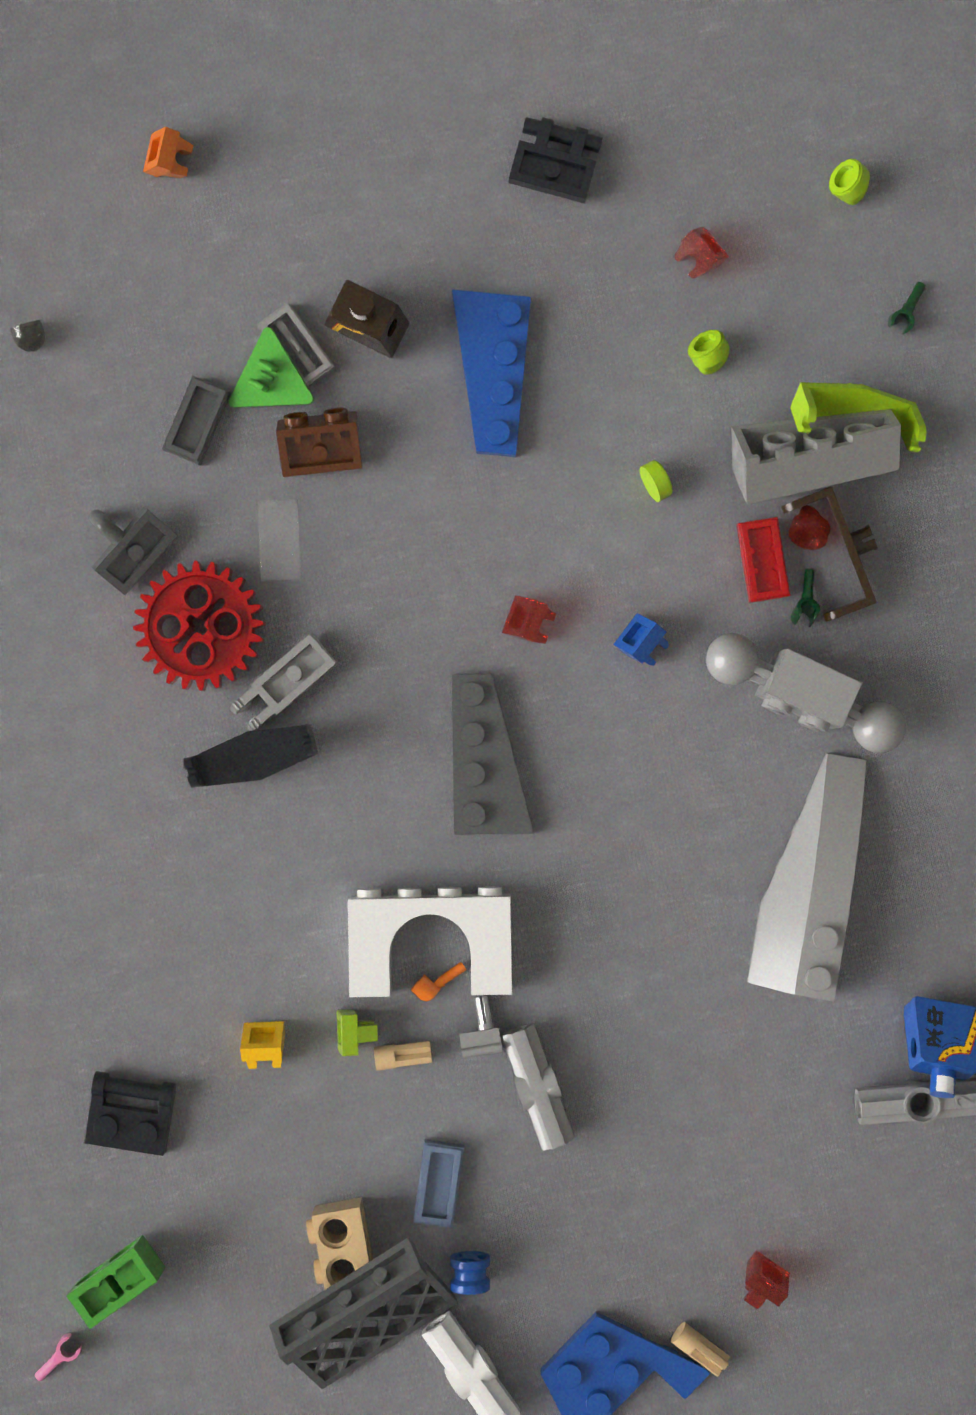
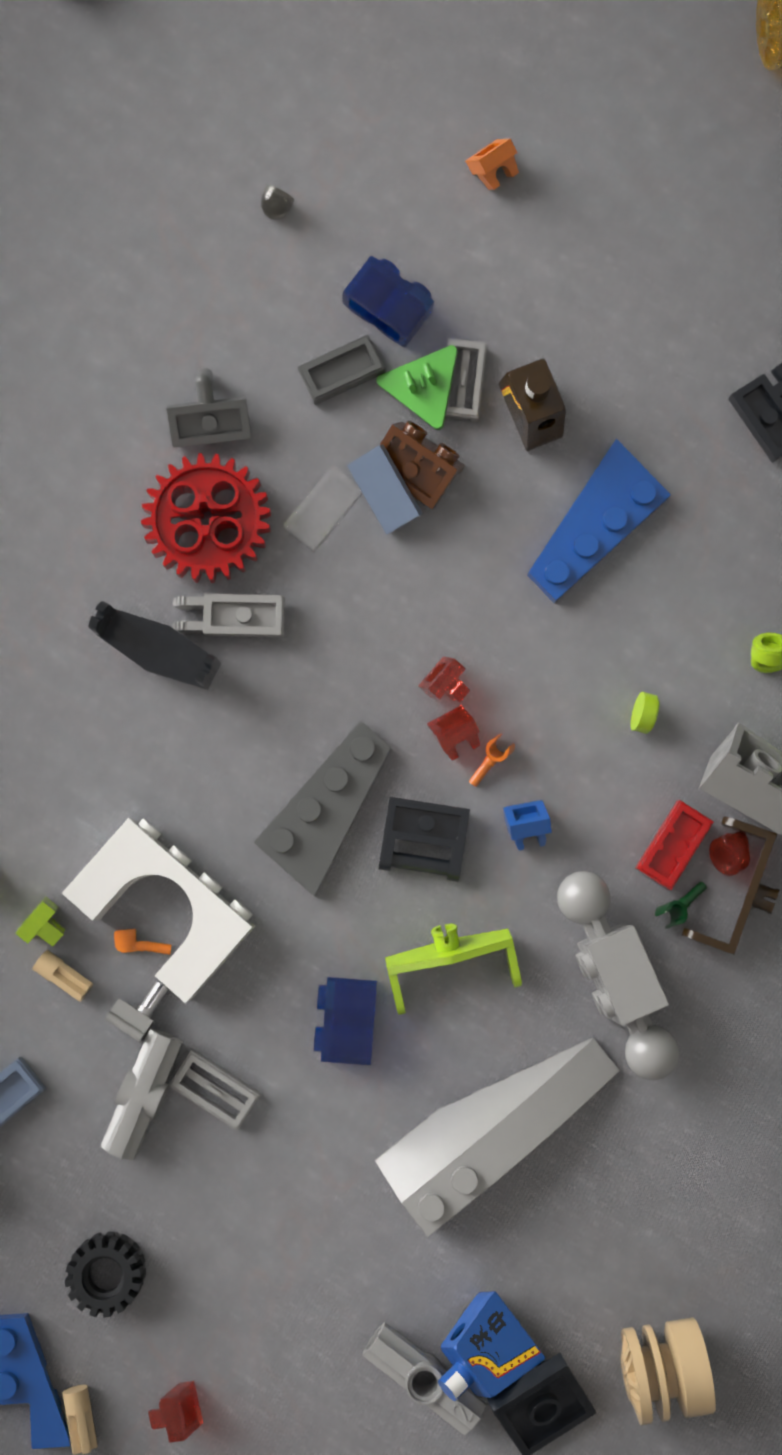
camera: 45 degrees right, 5 degrees down
(185, 335) = (388, 301): none -> clear blue brick
(313, 484) = (384, 489): none -> sand blue tile
(486, 588) = (445, 680): none -> clear red tile
(553, 1041) = (186, 1070): none -> light grey tile
(570, 707) = (426, 825): none -> black plate
(572, 612) = (490, 760): none -> orange hand
(631, 1258) = (99, 1299): none -> black tyre
(639, 900) = (347, 1020): none -> clear blue brick
(669, 783) = (450, 950): none -> lime piece

